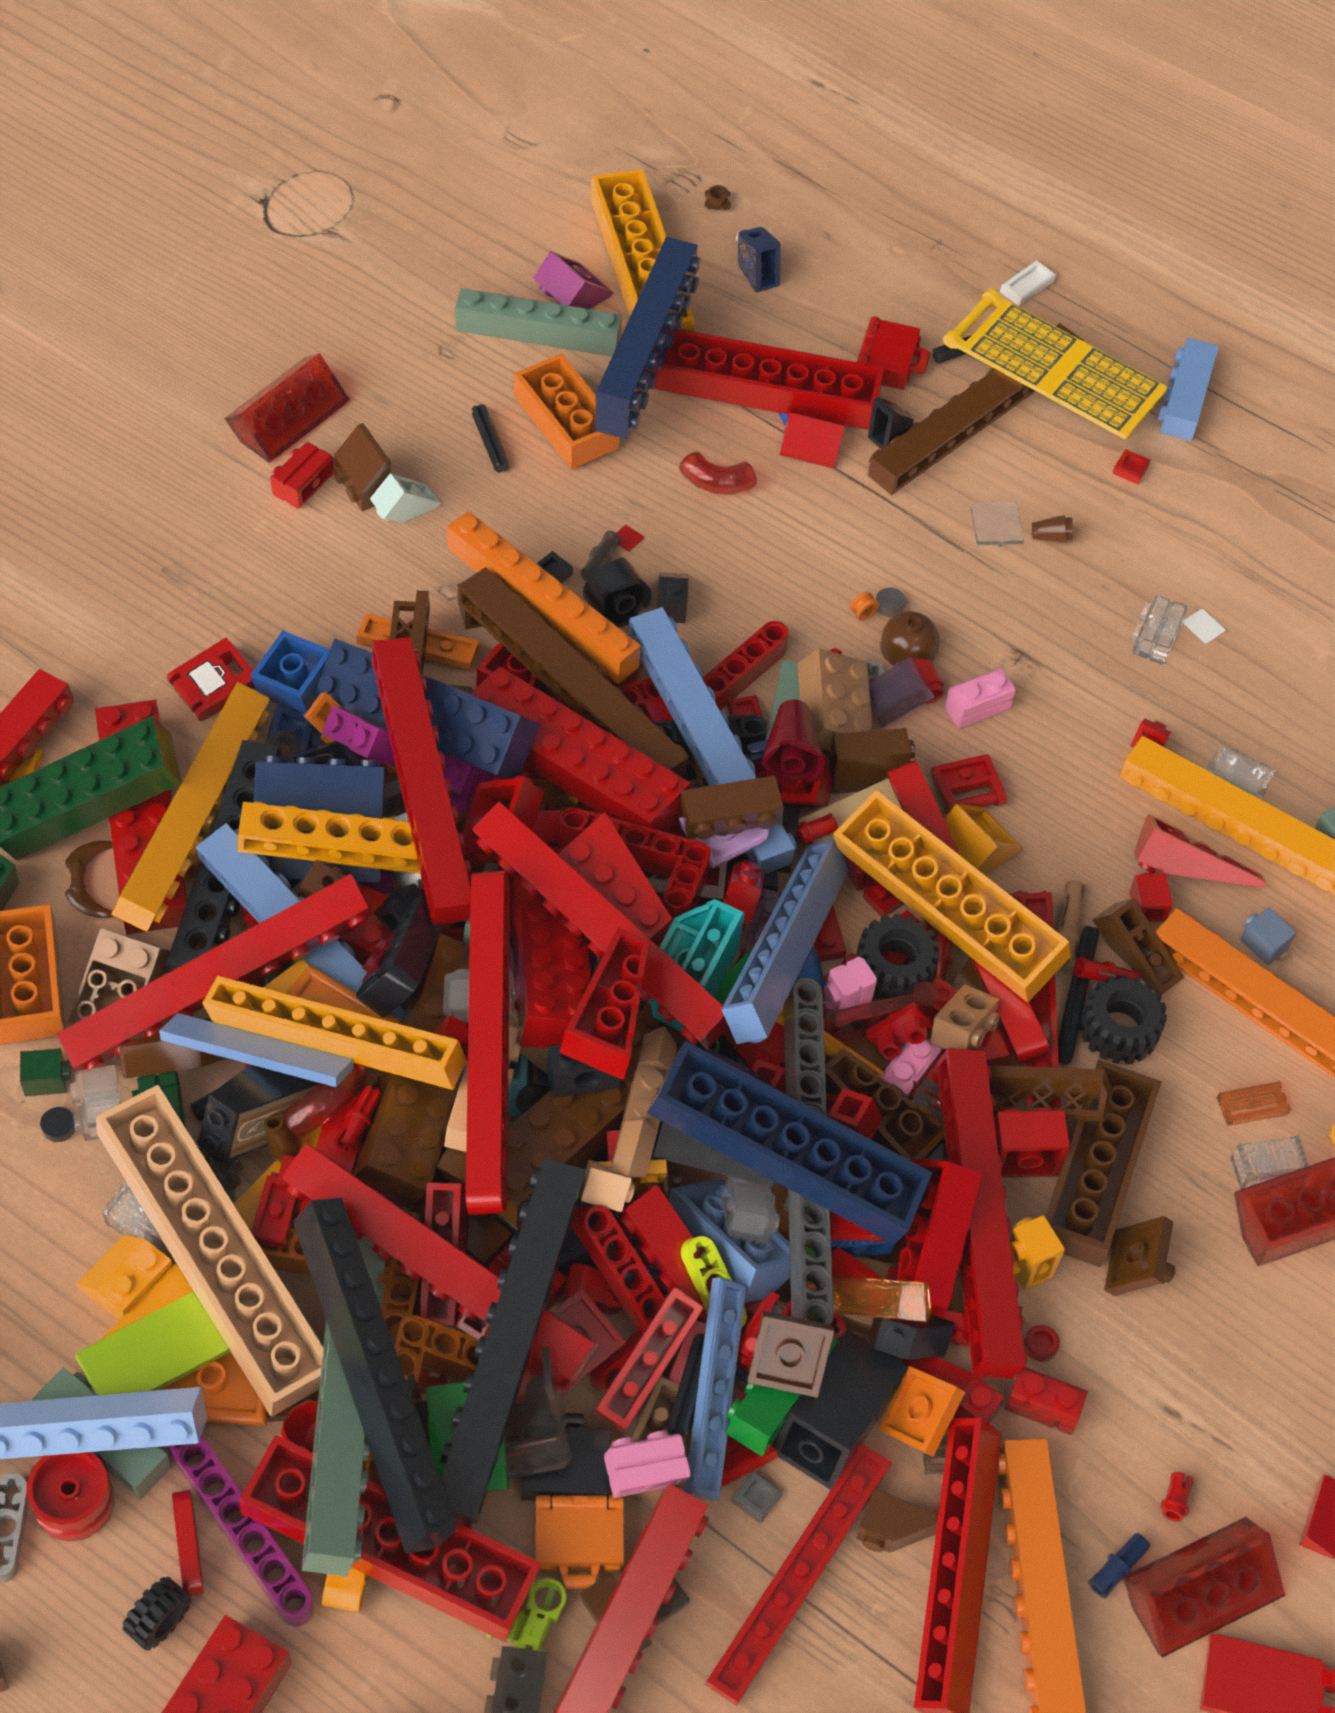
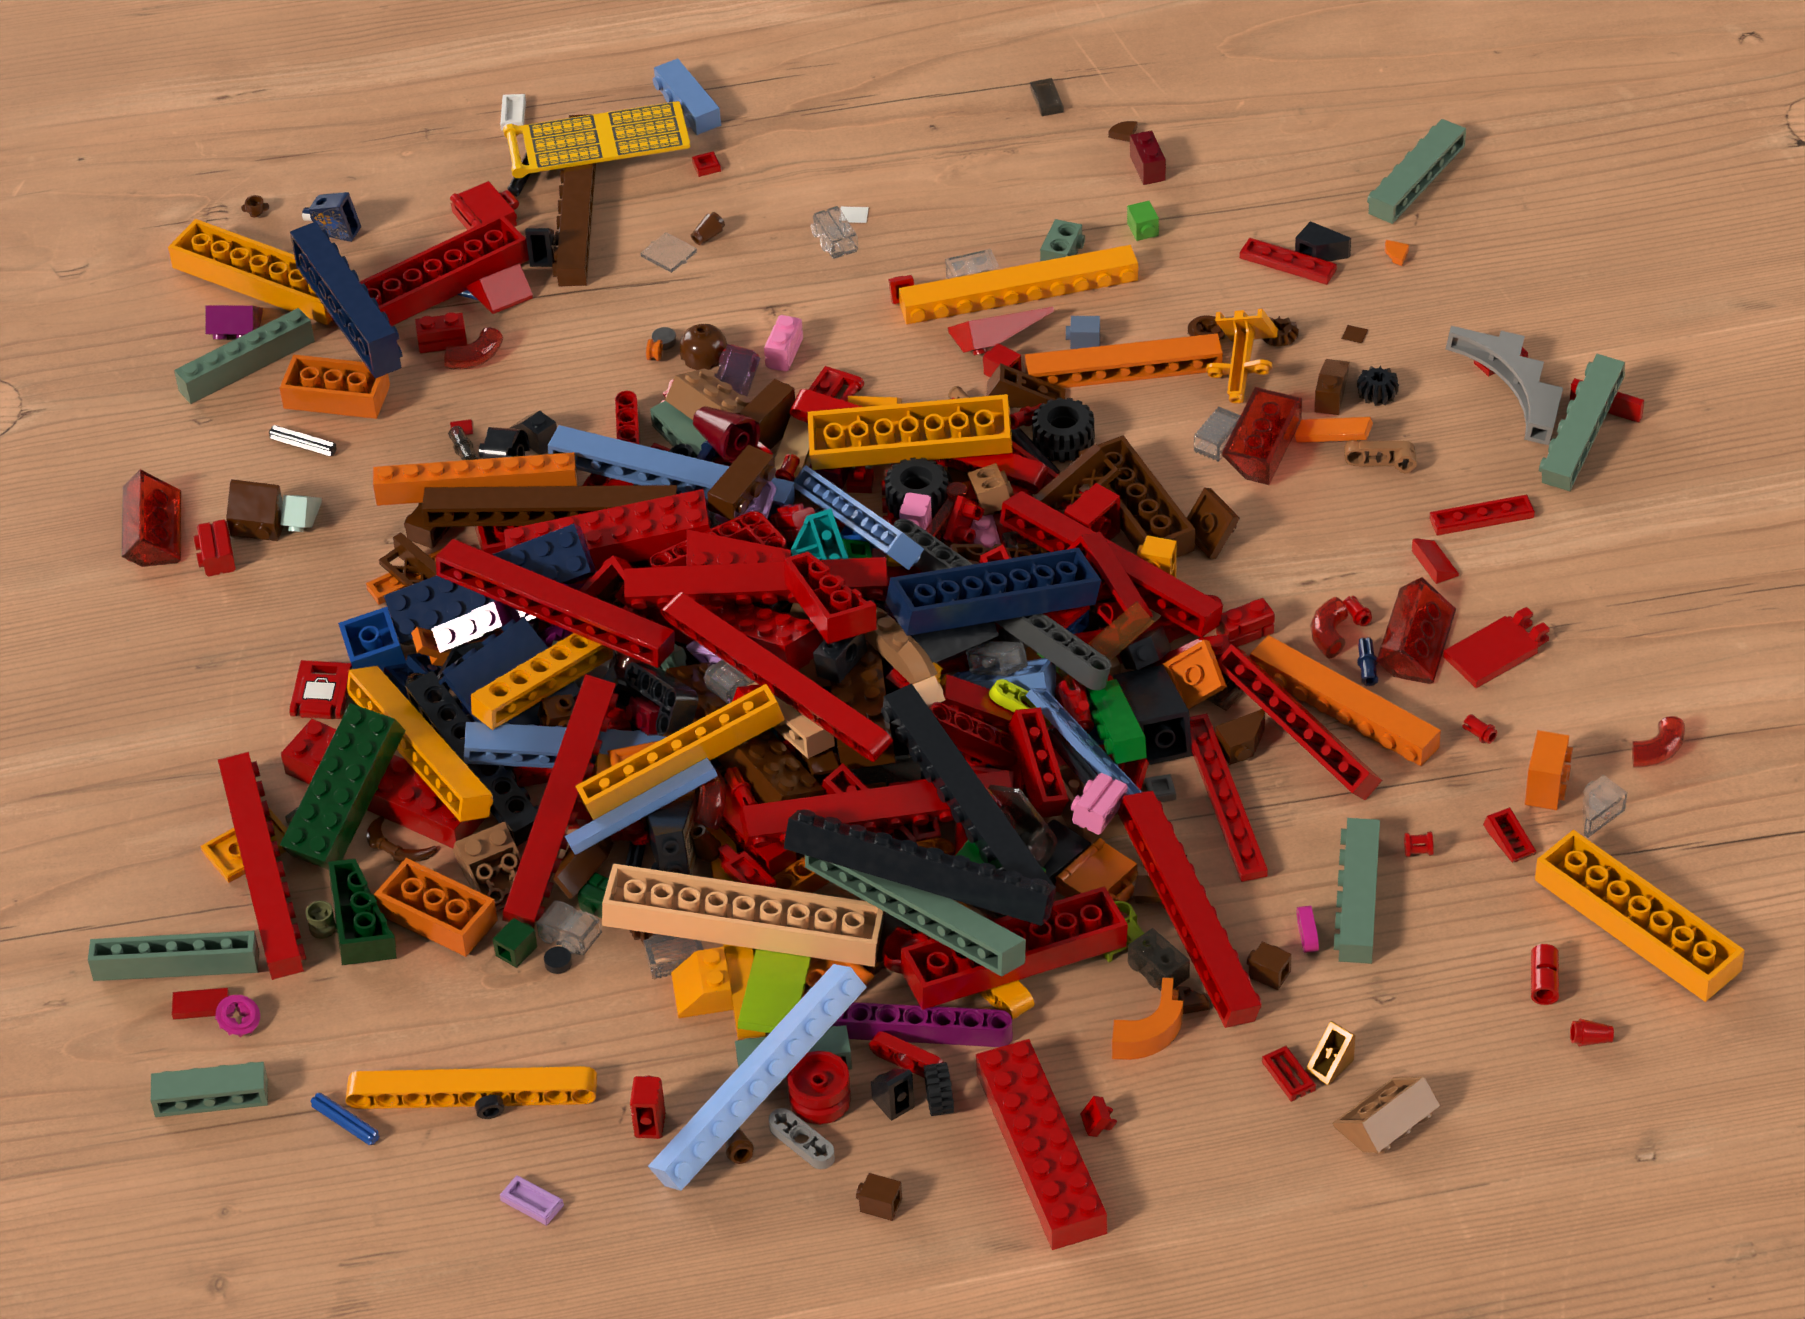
camera: 40 degrees left, 10 degrees down
(122, 1568) = (894, 1092): none -> black slope
(711, 435) = (438, 332): none -> red brick
(790, 1354) = (1109, 689): tile -> none
(1120, 1482) = (1324, 627): none -> clear red cylinder
(1251, 1092) = (1172, 406): clear orange tile -> none

